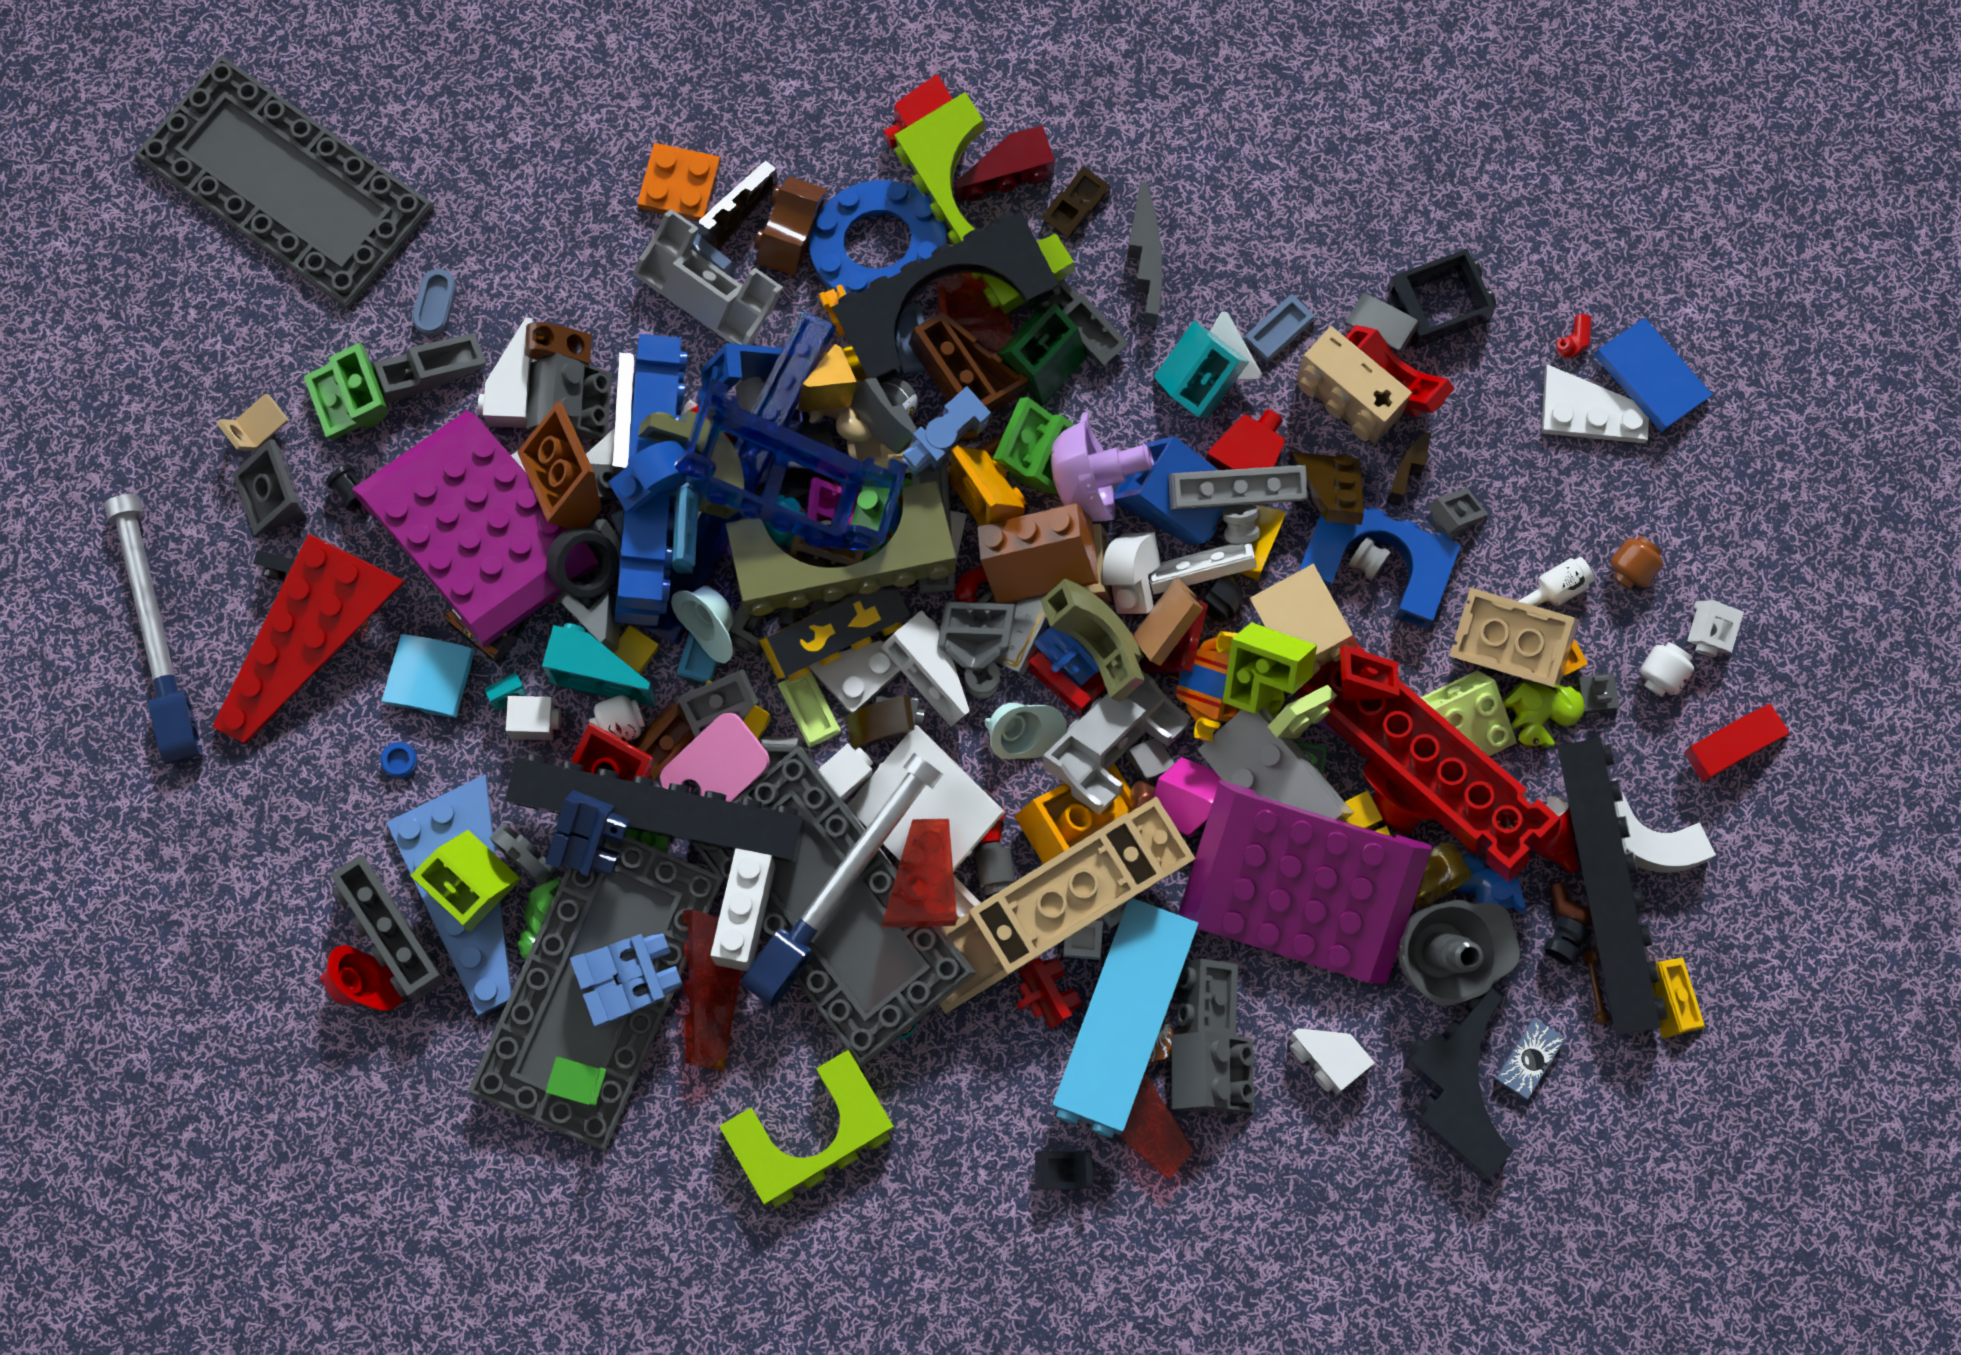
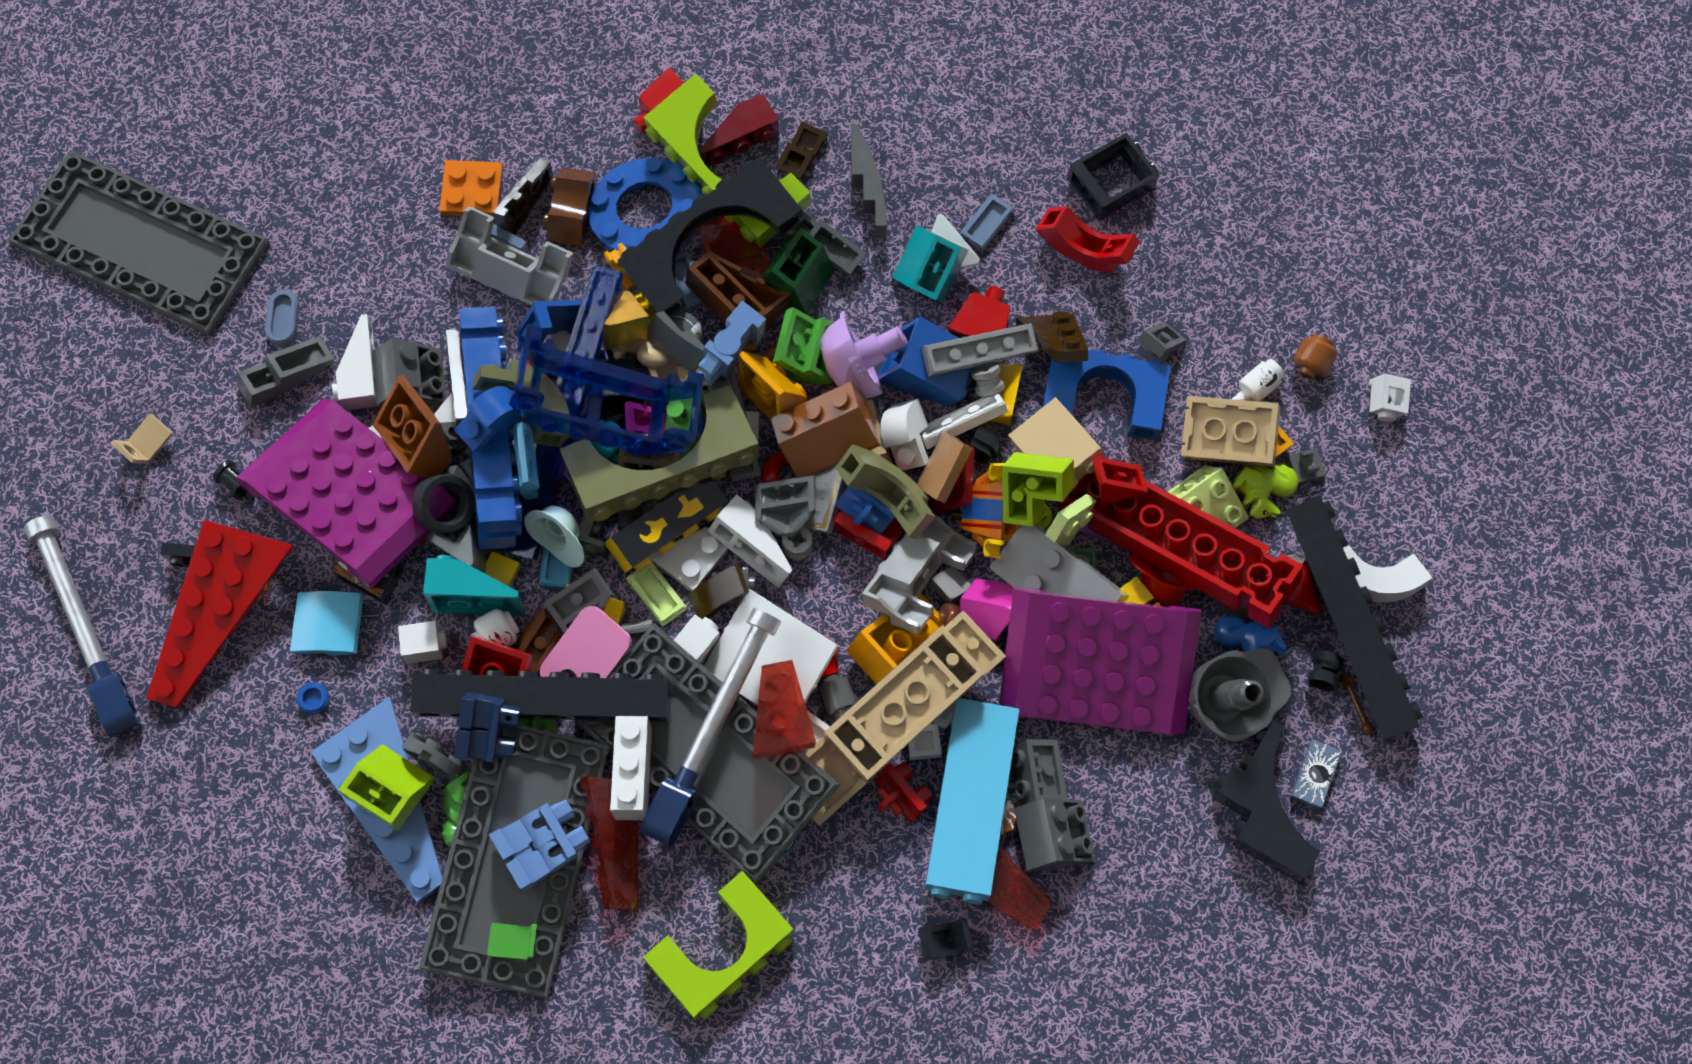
camera: 10 degrees left, 5 degrees down
(268, 490) = (164, 493): dark grey slope -> none
(346, 393) = (219, 402): bright green brick -> none
(359, 979) = (310, 889): red piece -> none
(388, 929) = (329, 844): dark grey brick -> none
(500, 690) = (390, 625): teal slope -> none
(548, 339) = (381, 328): reddish brown leg -> none
(1024, 730) = (841, 578): light aqua piece -> none
(1333, 1055) = (1151, 800): white slope -> none
(1352, 386) = (1056, 255): tan piece -> none
(1369, 558) = (1098, 390): light grey wheel -> none
(1391, 323) = (1079, 200): slope -> none
(1413, 464) = (1116, 311): dark brown slope -> none
(1443, 873) = (1213, 633): clear yellow piece -> none
(1565, 907) = (1317, 642): copper arm -> none
(1579, 340) = (1229, 191): red arm -> none
(1588, 410) = (1251, 245): white wing -> none
(1653, 374) = (1295, 207): blue tile -> none
(1667, 669) = (1358, 437): white head -> none
(1679, 997) = (1429, 702): yellow slope -> none
(1736, 742) = (1426, 486): red slope -> none

